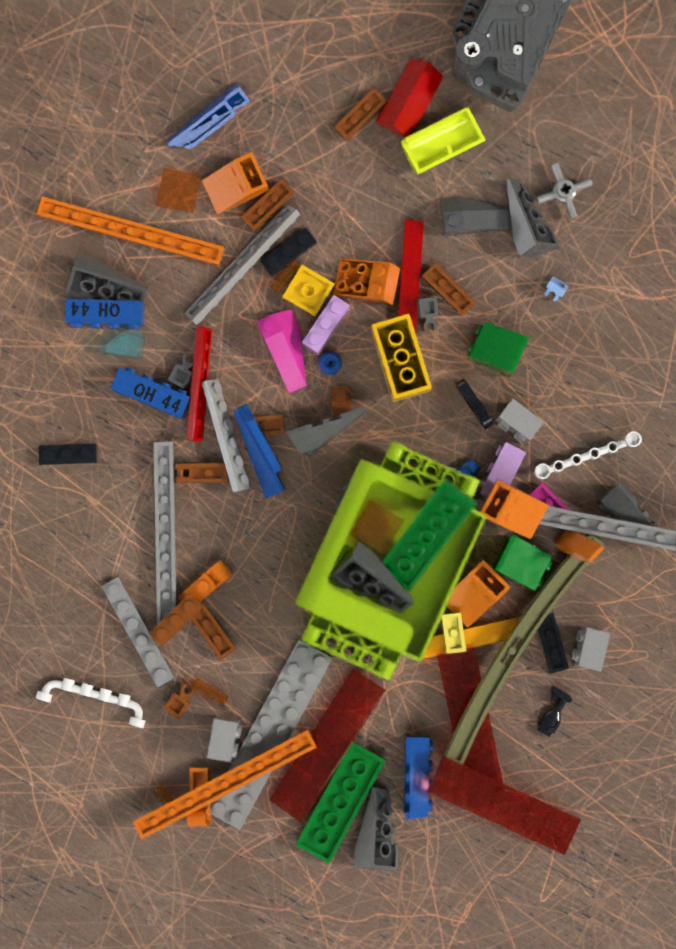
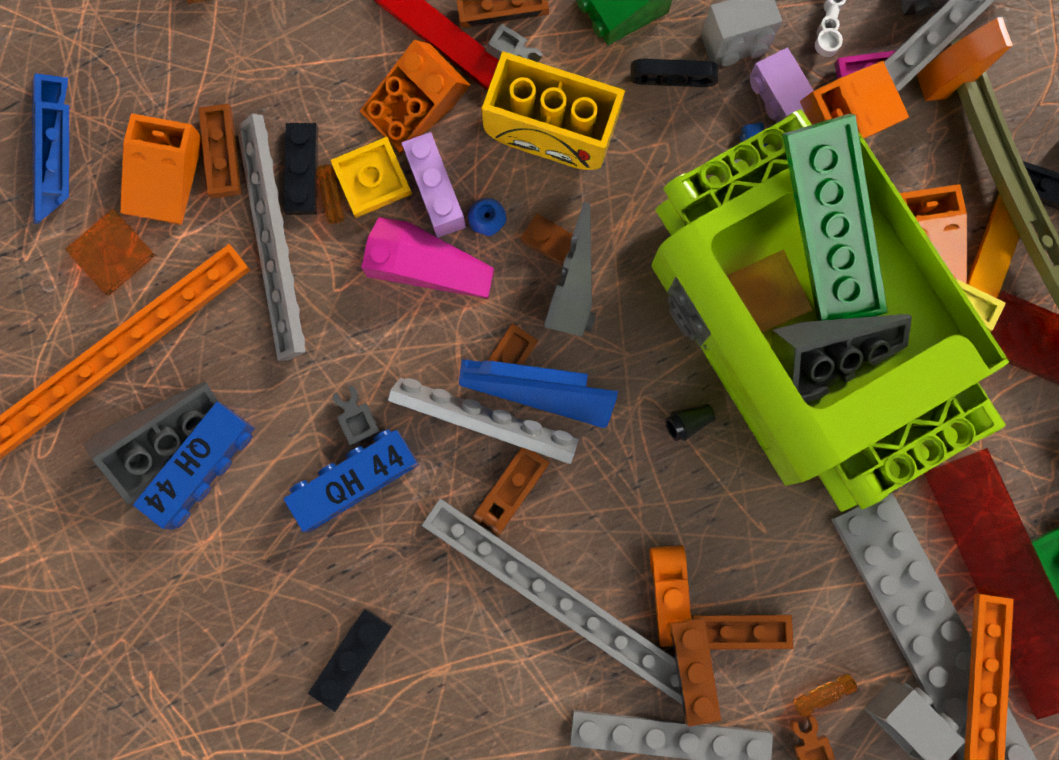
camera: 55 degrees left, 5 degrees down
(126, 344) = (260, 468): clear light blue slope -> none
(200, 374) = (377, 396): red tile -> none
(296, 536) = (687, 422): none -> black cone
(522, 563) = (927, 152): green slope -> none

